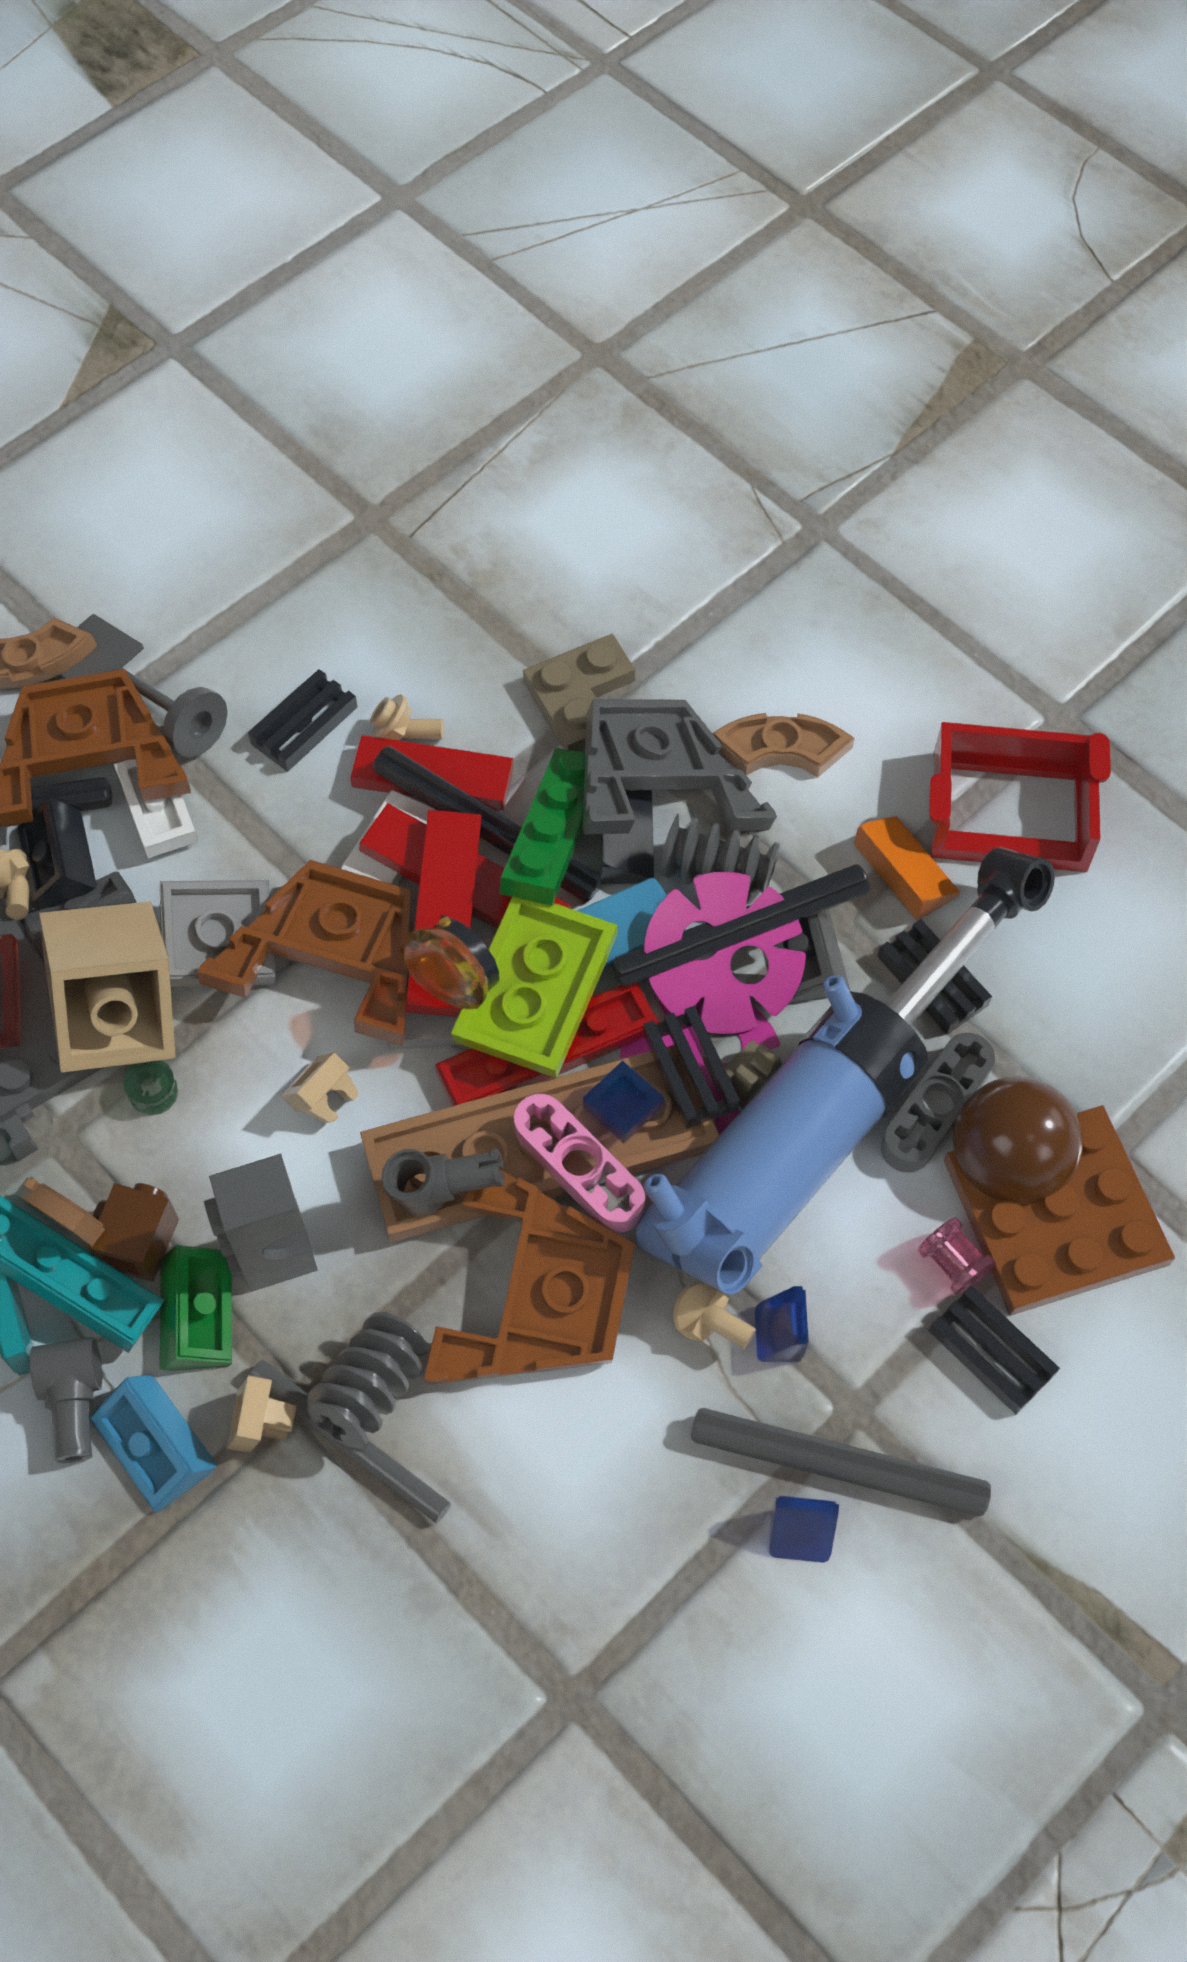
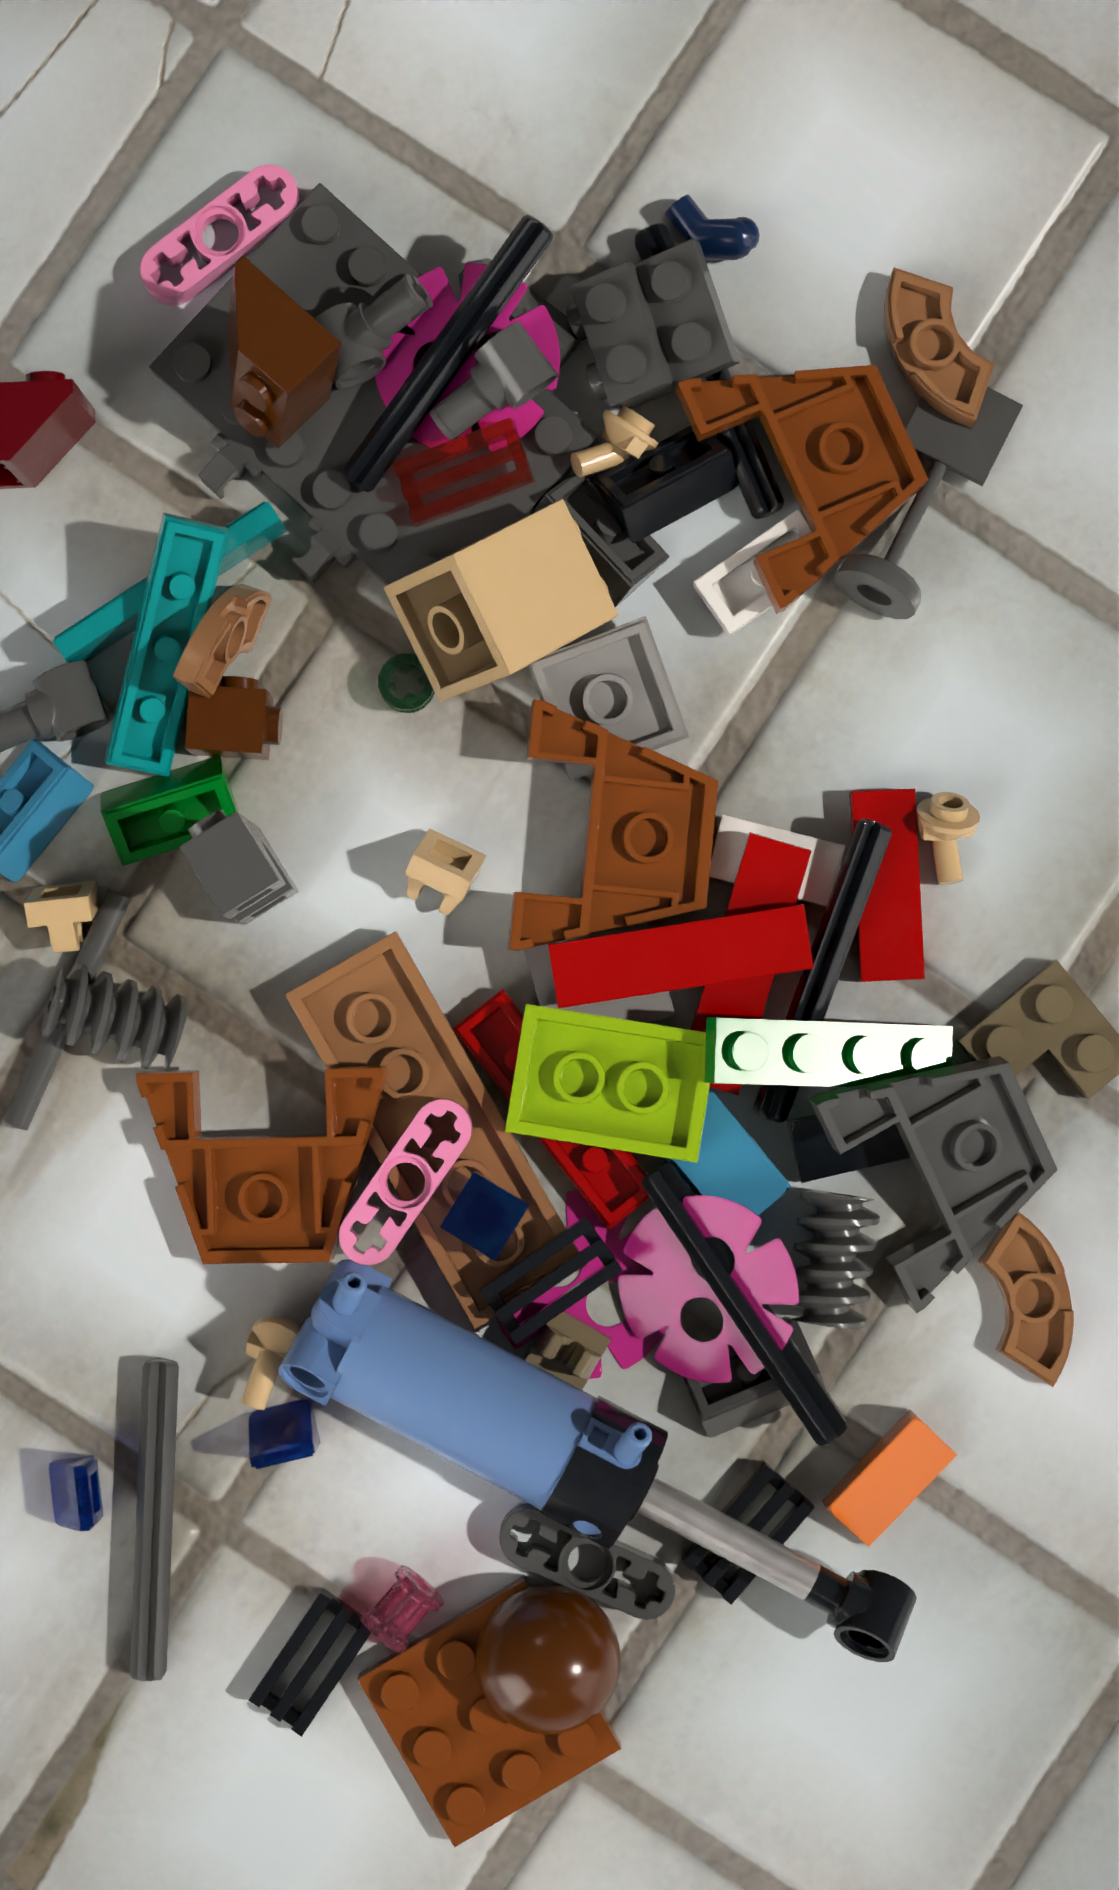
camera: 80 degrees right, 25 degrees up
(296, 714) = (974, 733): black tile -> none
(443, 1178) = (341, 1043): dark grey pin -> none
(451, 963) = (588, 990): clear orange piece -> none
(1026, 754) = (1053, 1687): red piece -> none

